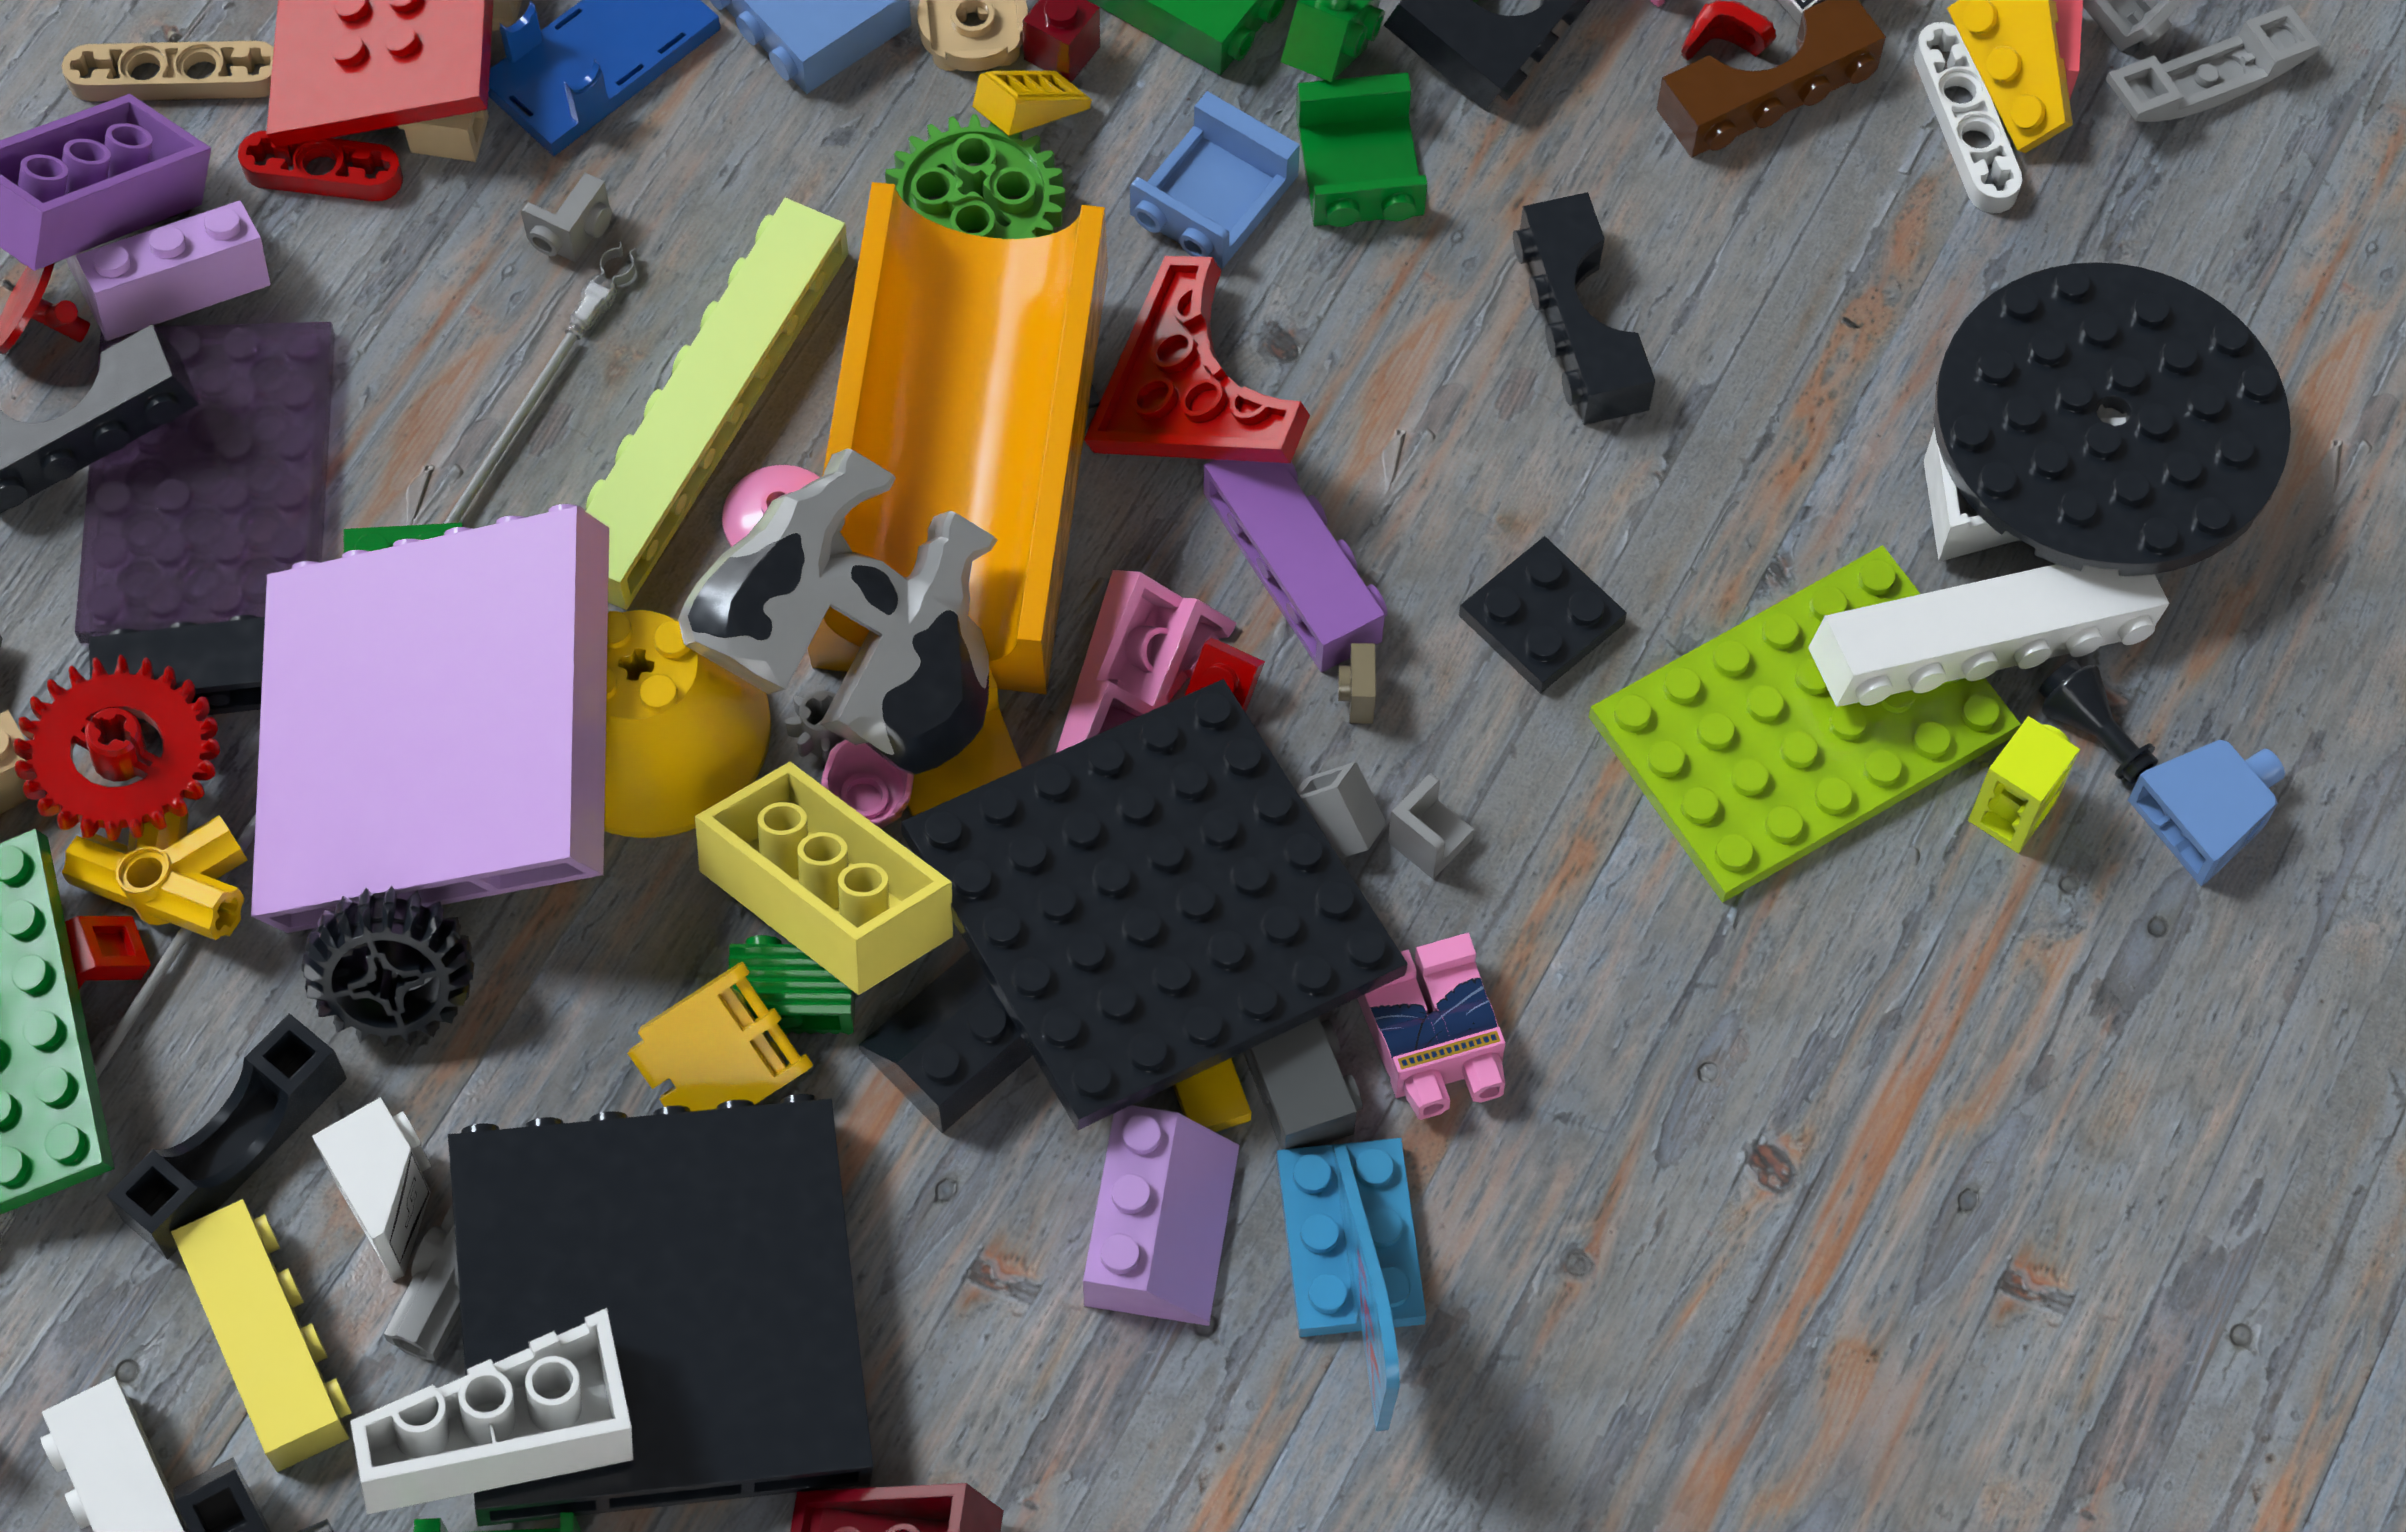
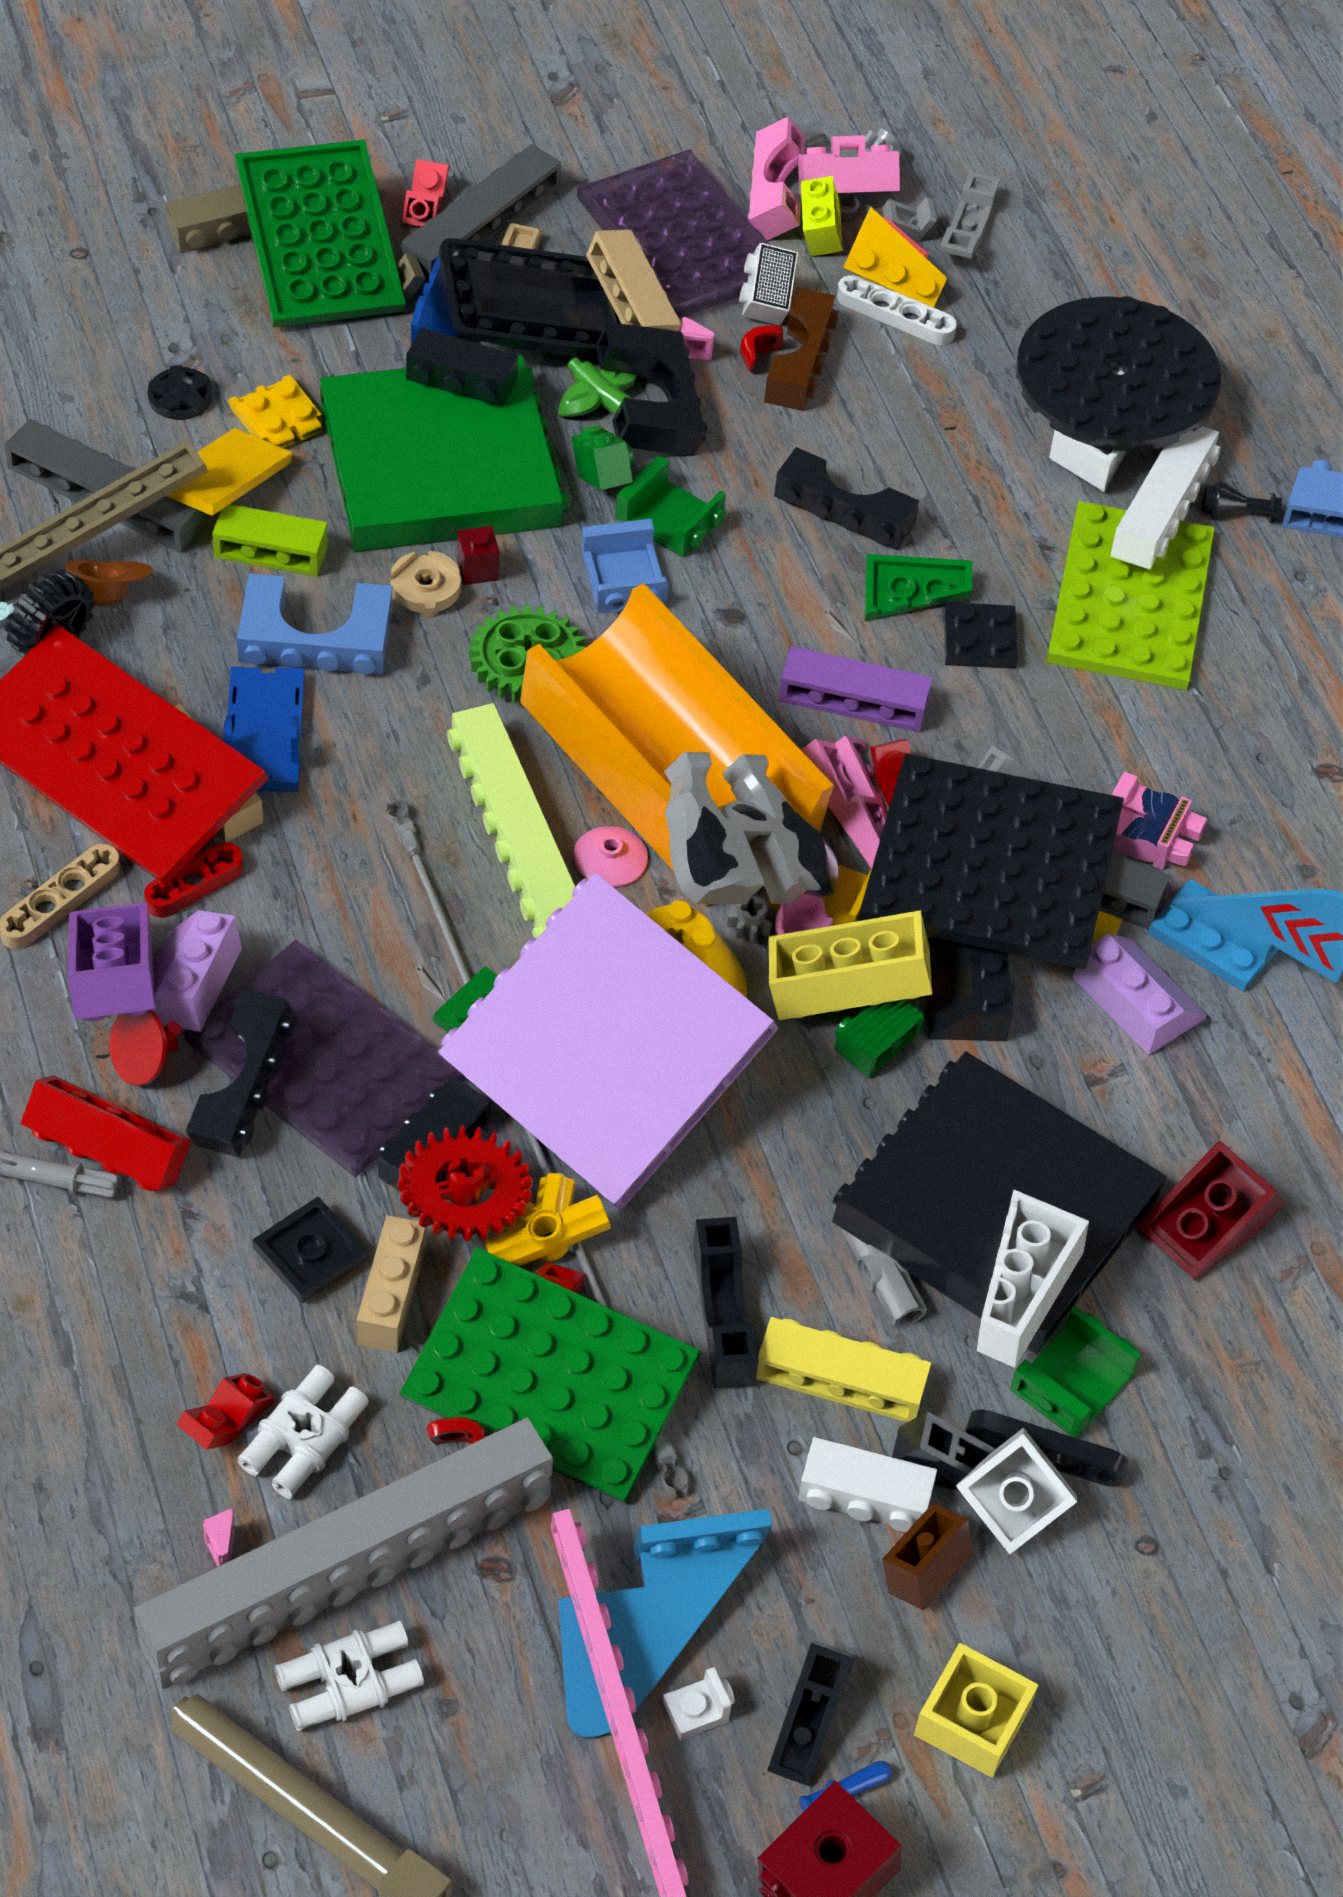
camera: 50 degrees left, 10 degrees down
(380, 1175) = (823, 1258): white slope -> none
(408, 942) = (711, 1164): black gear -> none
(575, 224) = (357, 812): light grey bracket -> none
(717, 1047) = (886, 1079): yellow plate -> none
(1026, 99) = (502, 594): yellow slope -> none
(1174, 394) = (758, 655): red plate -> none
(1358, 683) = (950, 717): dark tan plate -> none
(1428, 829) = (1048, 755): light grey panel -> none
(1534, 480) = (913, 583): none -> green wing
(2024, 783) = (1253, 542): neon yellow brick -> none

